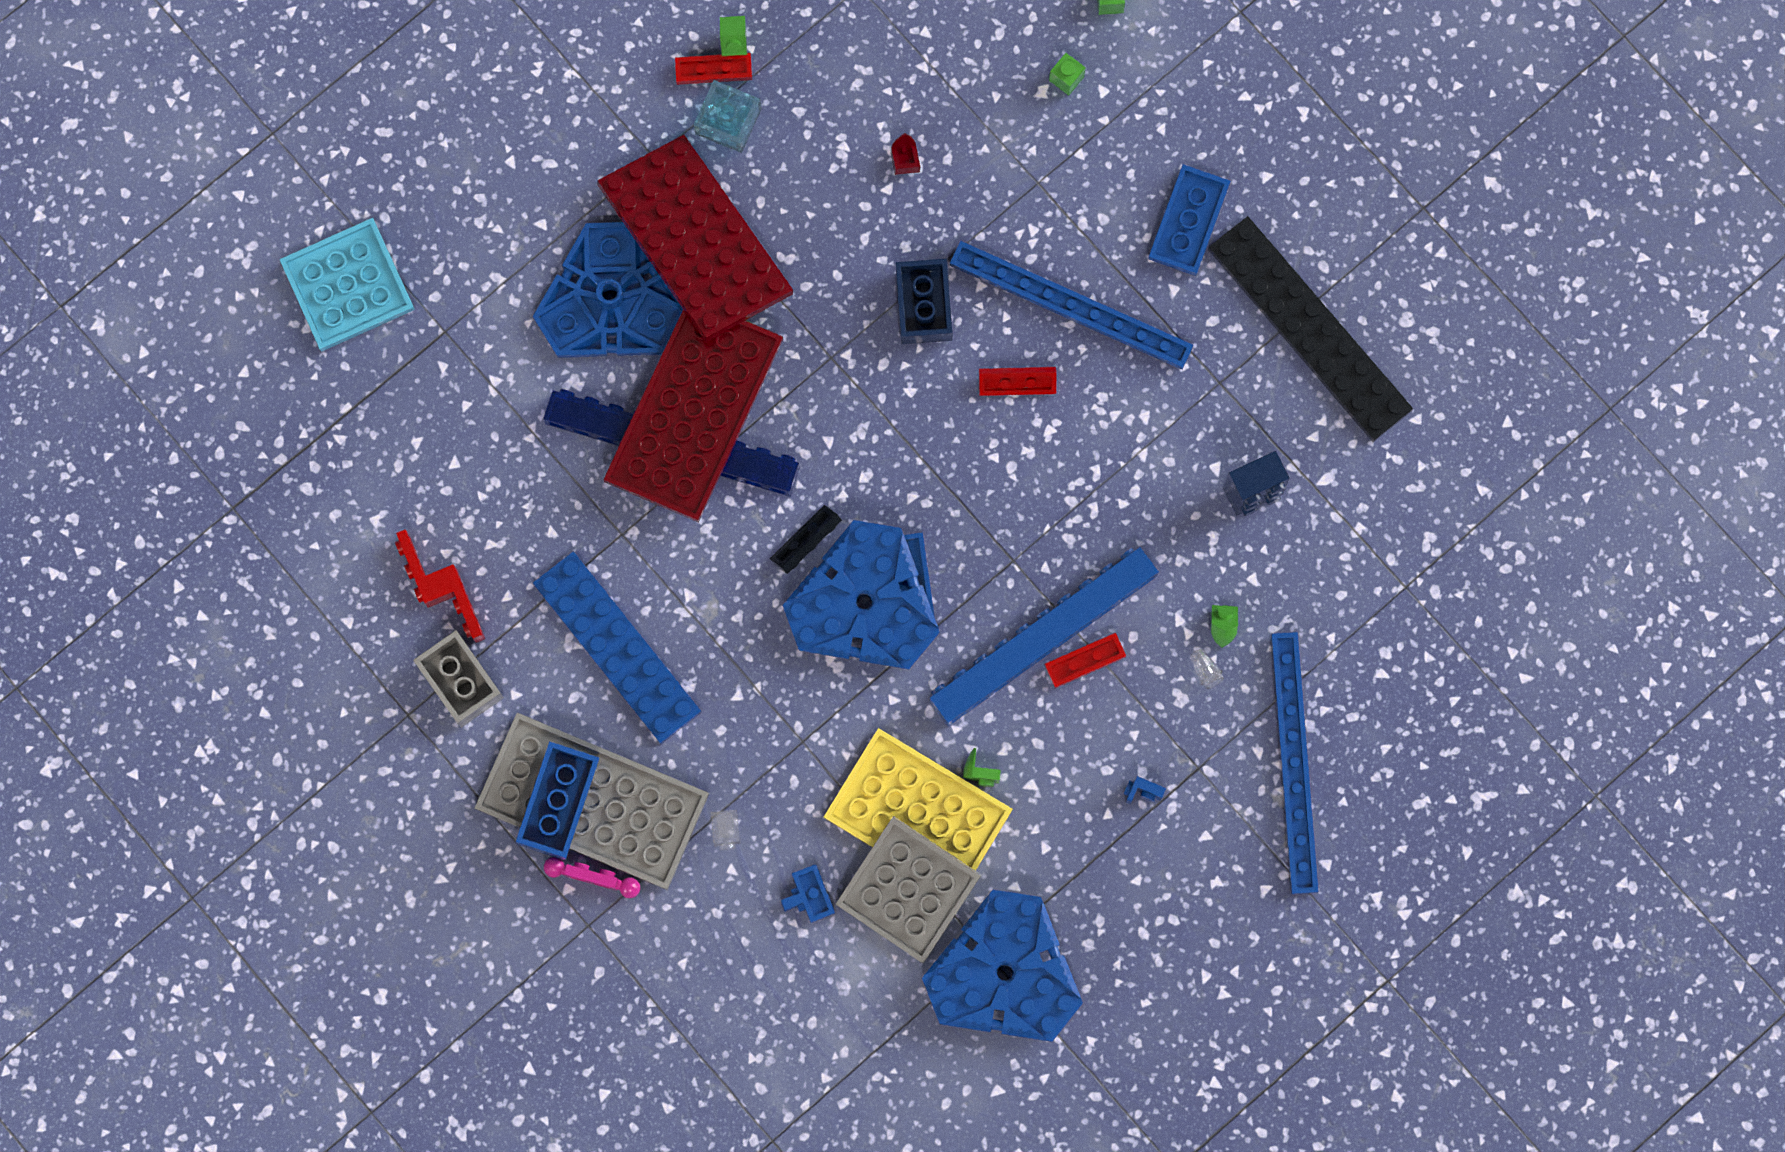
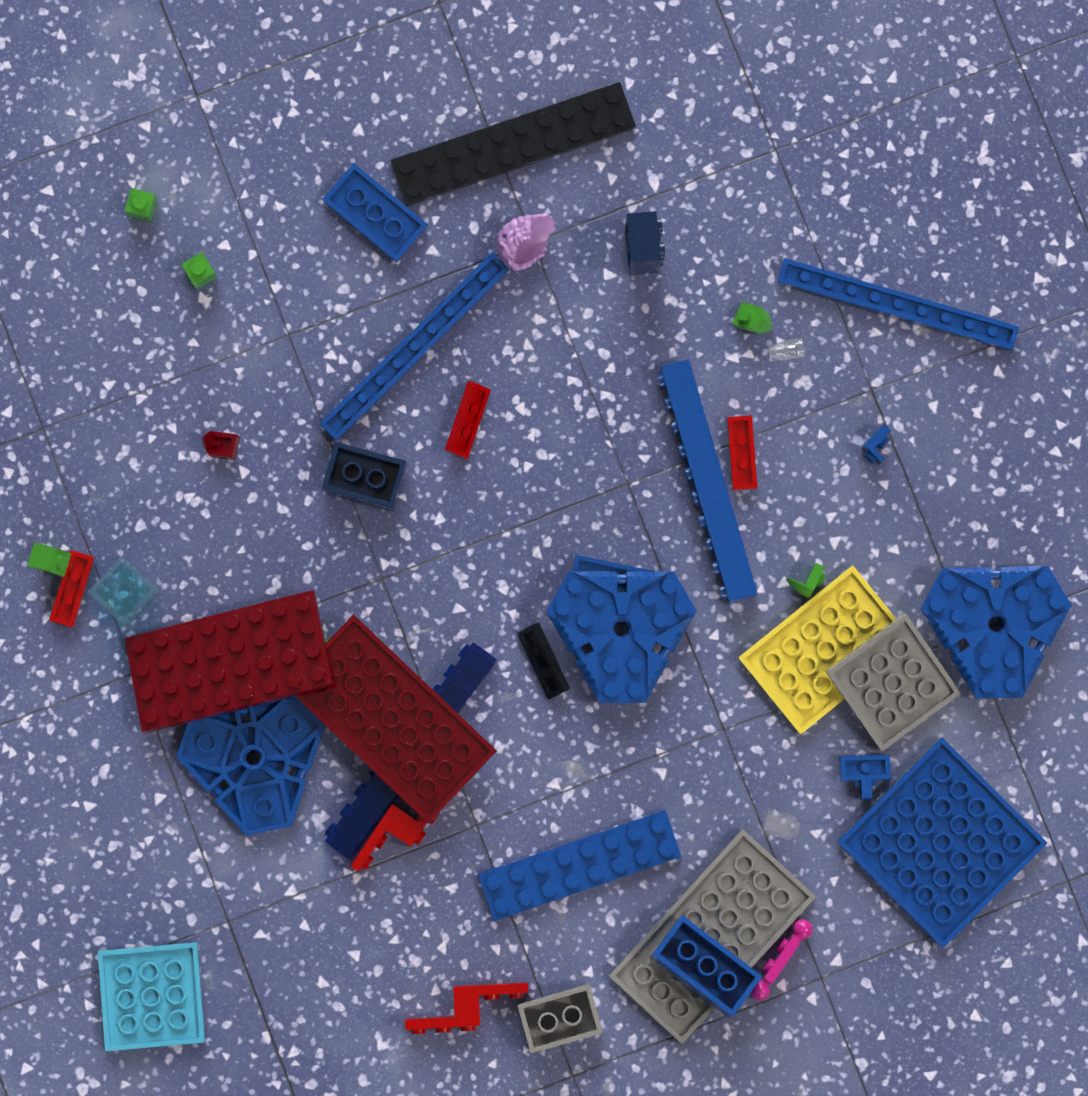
camera: 75 degrees left, 5 degrees up
(594, 457) = (398, 824): none -> red bracket
(765, 997) = (942, 842): none -> blue plate
(1216, 371) = (524, 240): none -> lavender piece

